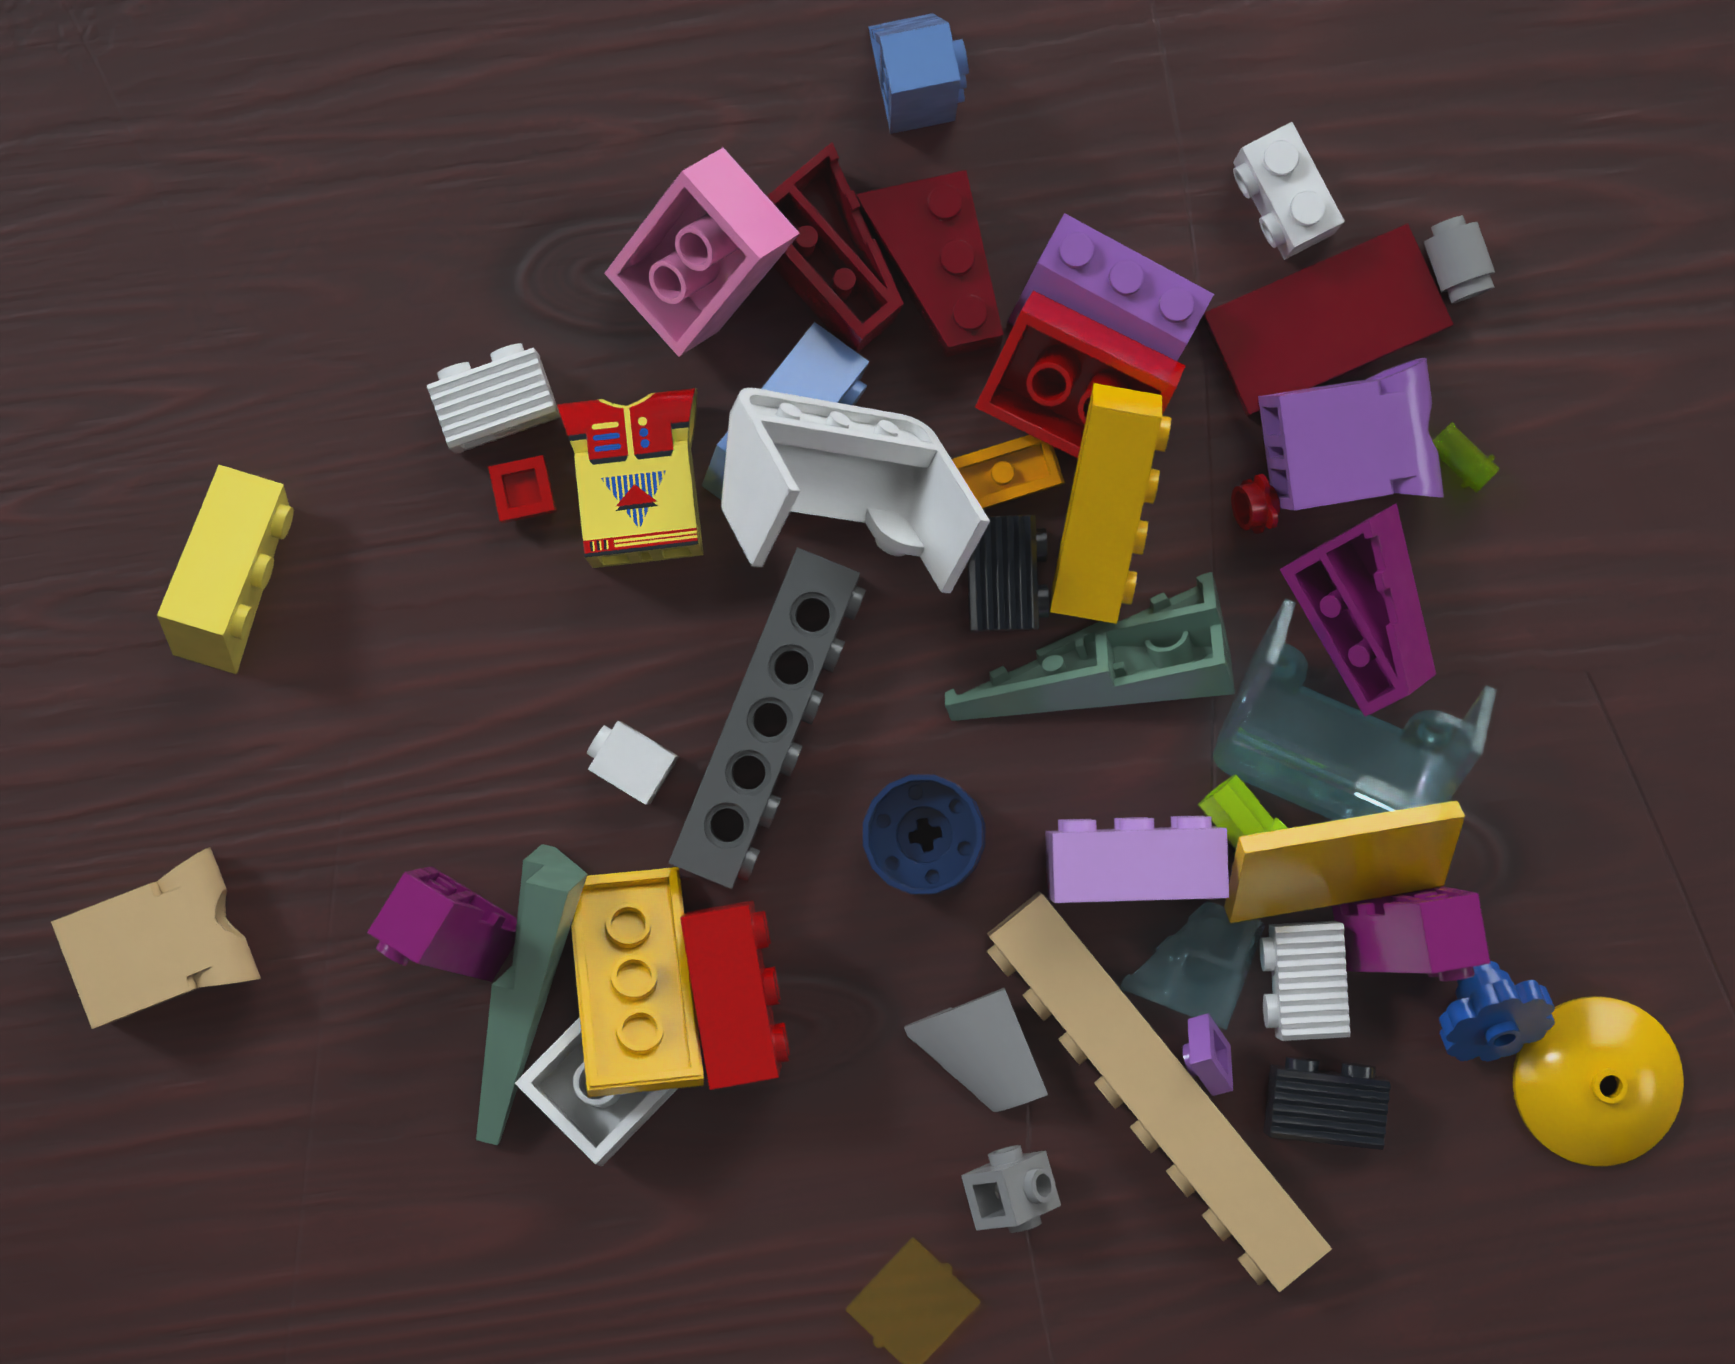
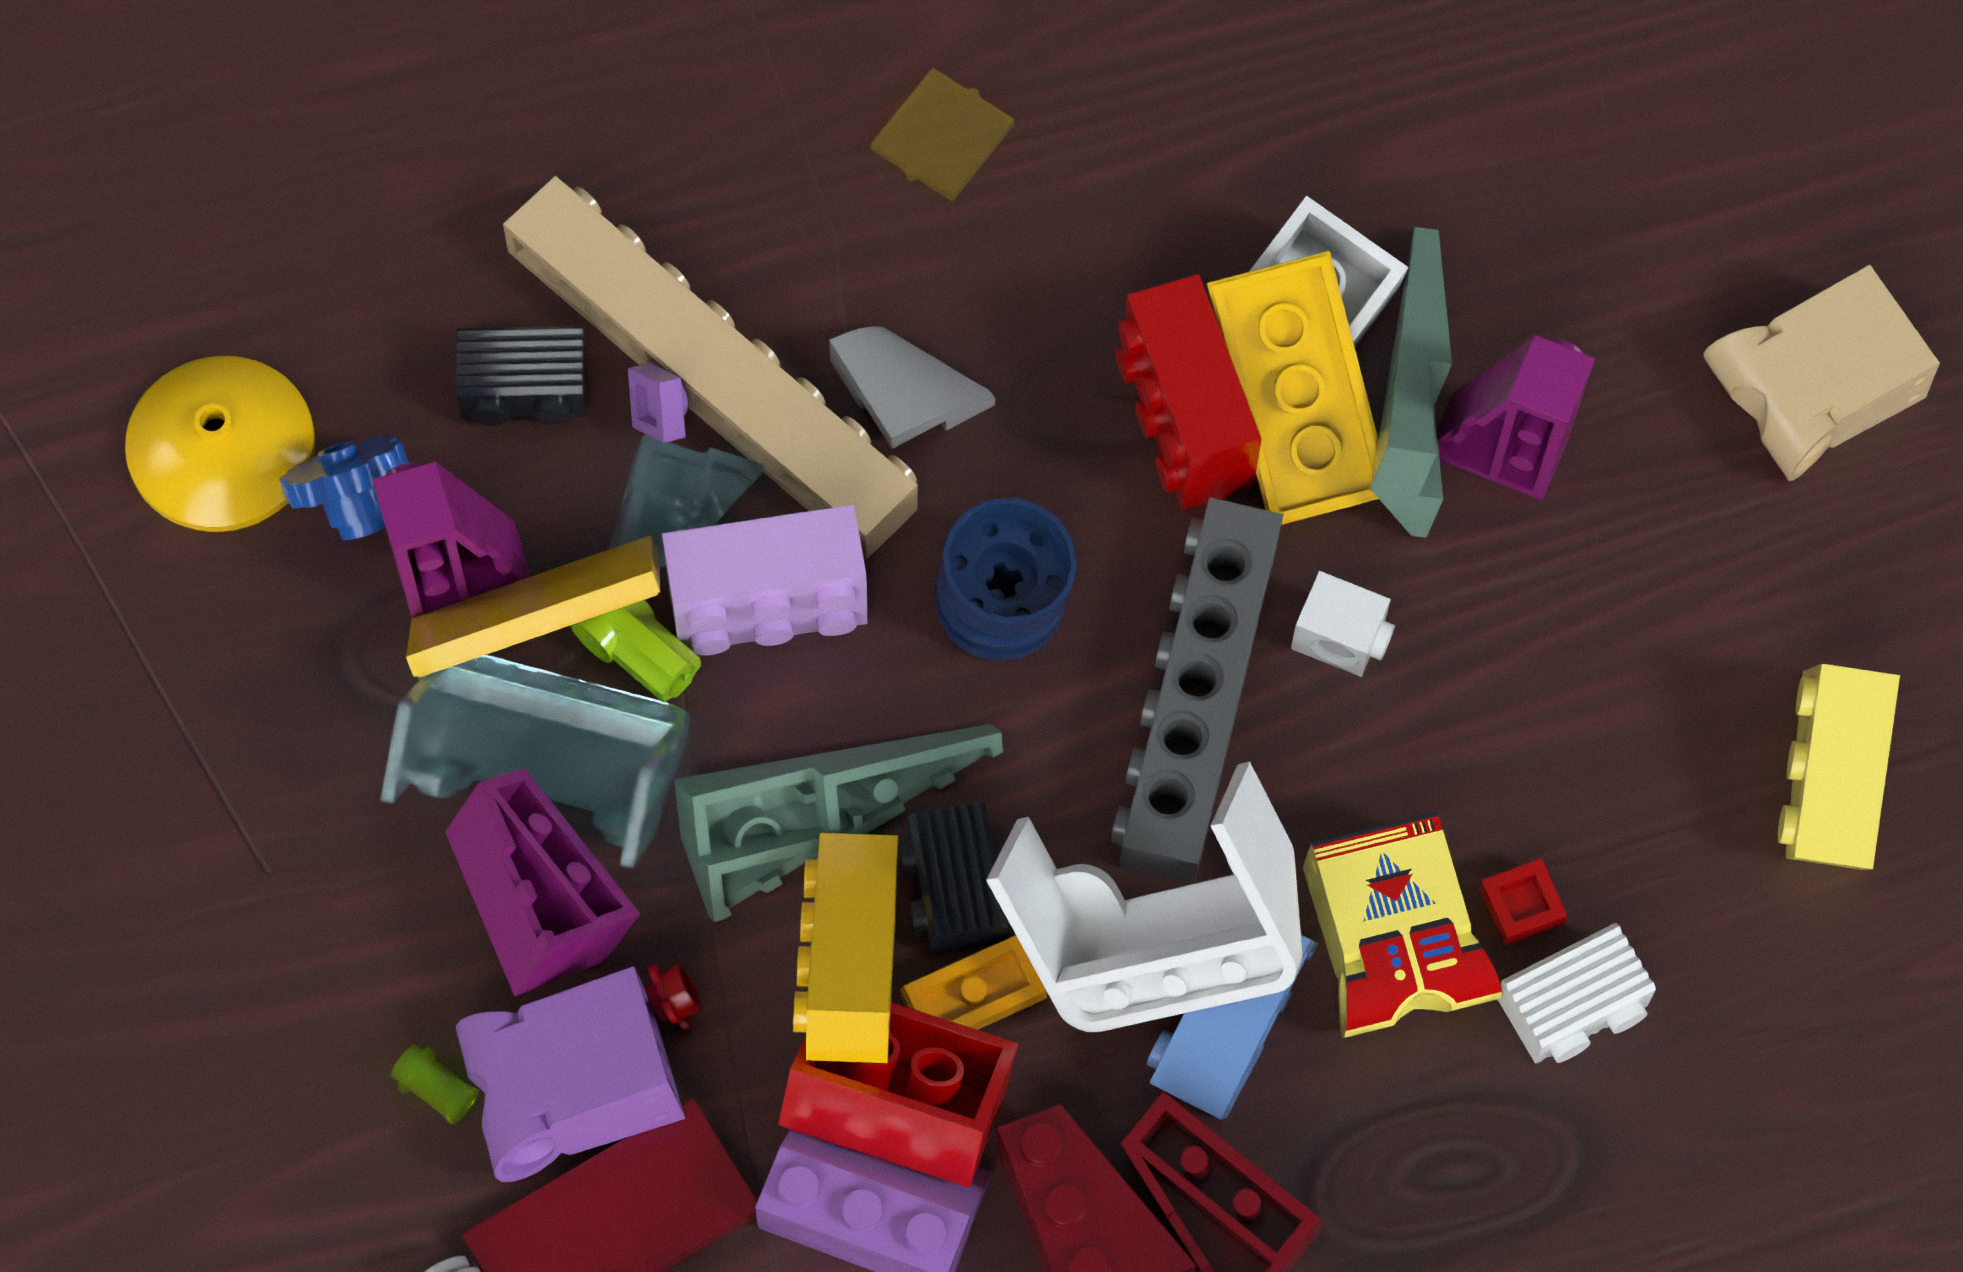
camera: 170 degrees right, 20 degrees down
(701, 251) = (1365, 1165): bright pink brick -> none
(1011, 1190) = (855, 243): light grey brick -> none
(1306, 980) = (556, 495): white brick -> none

